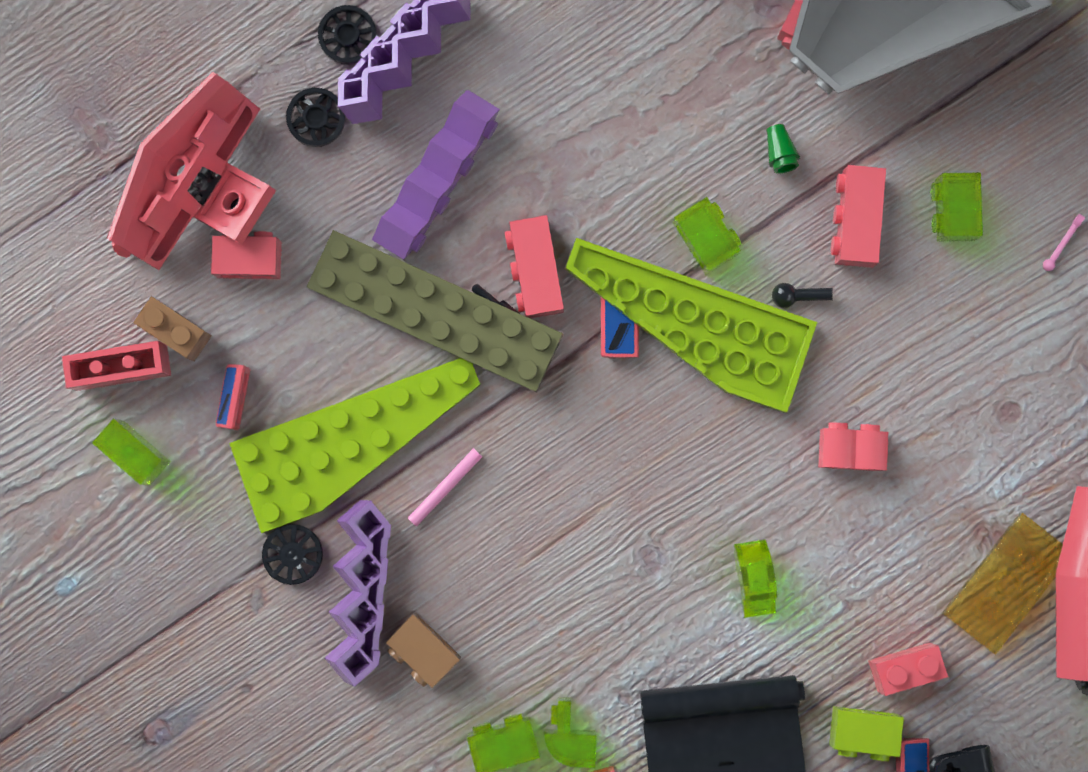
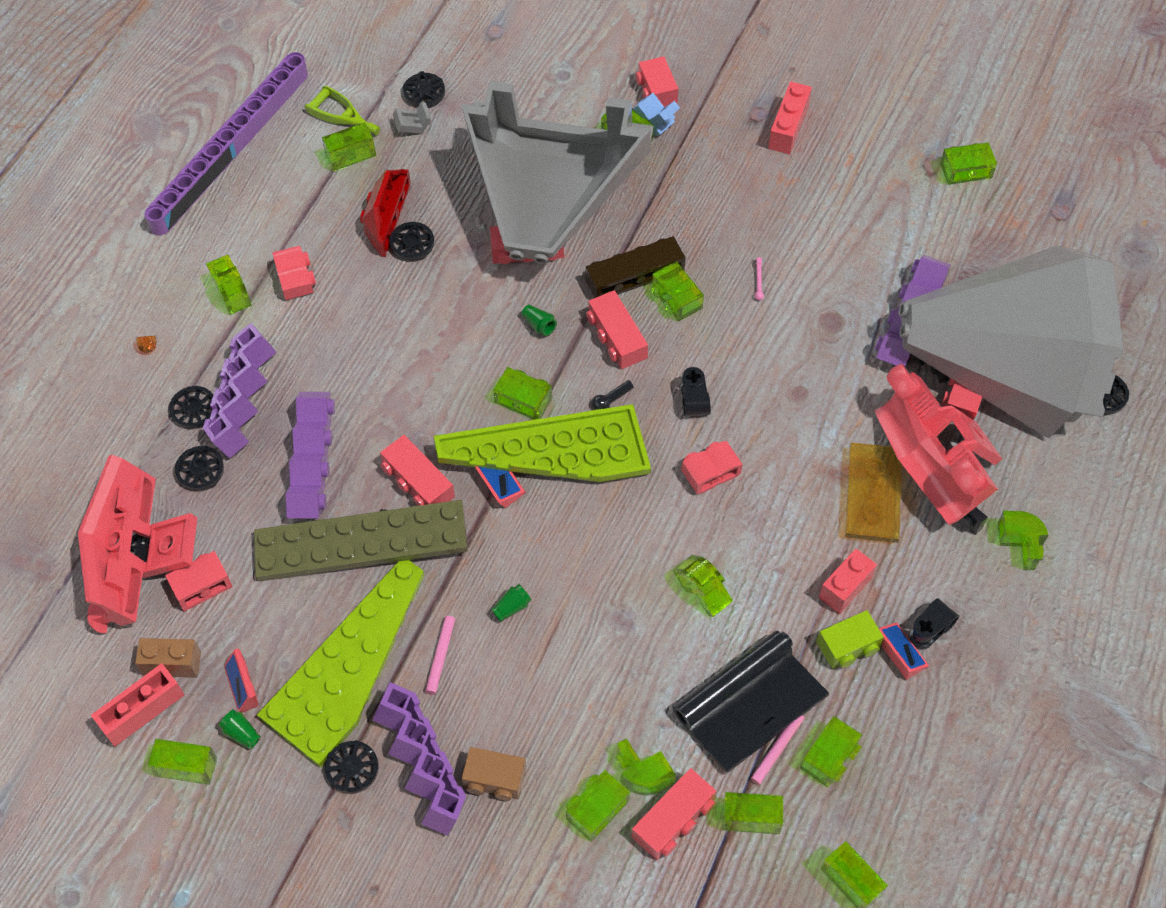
camera: 35 degrees left, 25 degrees down
(204, 449) = (239, 729): none -> green cone
(548, 476) = (511, 602): none -> green cone
(891, 355) = (695, 395): none -> black piece
(930, 147) = (632, 268): none -> dark brown brick

